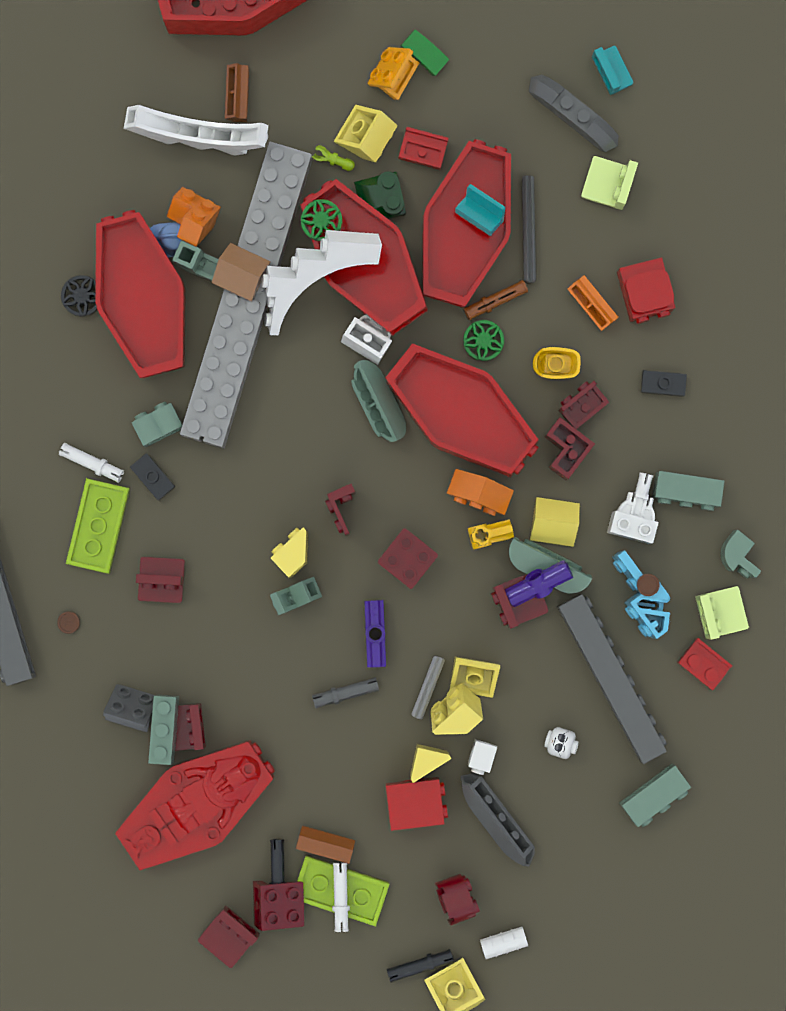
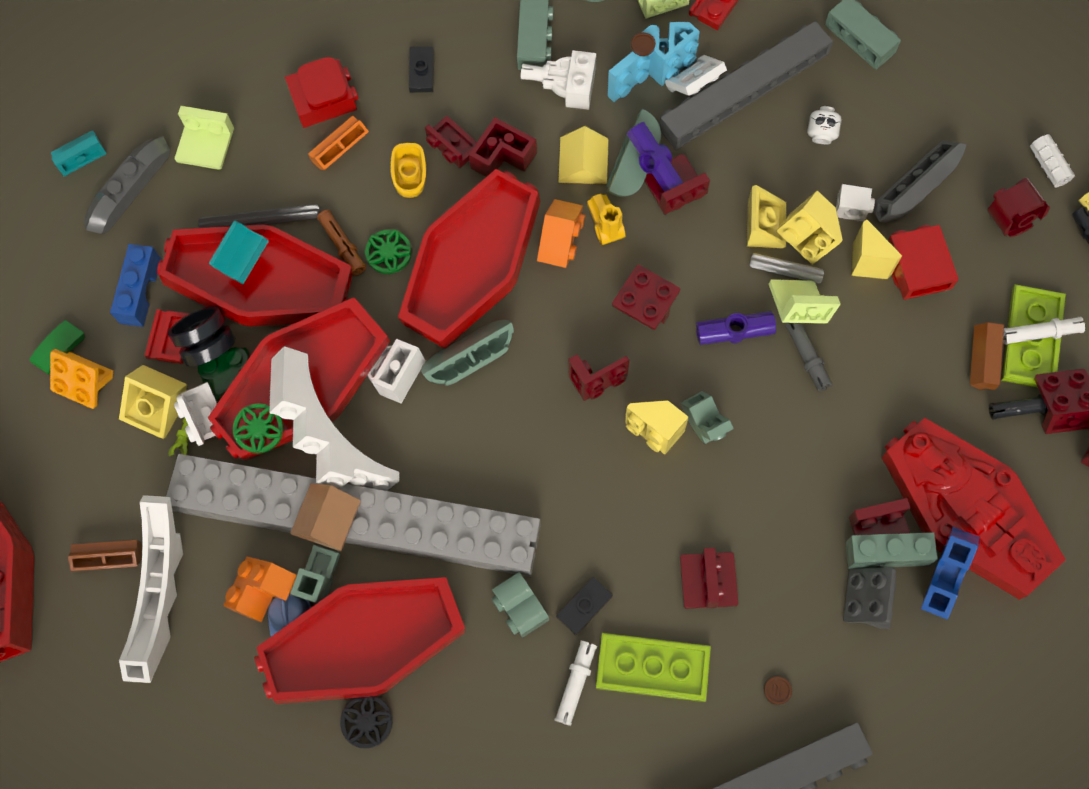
camera: 85 degrees left, 15 degrees down
(138, 772) = (949, 572): none -> blue arch
(347, 168) = (196, 407): none -> white bracket
(391, 692) = (801, 303): none -> yellowish green bracket
(413, 175) = (201, 336): none -> black wheel
(465, 116) = (130, 300): none -> blue arch
(623, 633) = (696, 76): none -> white plate

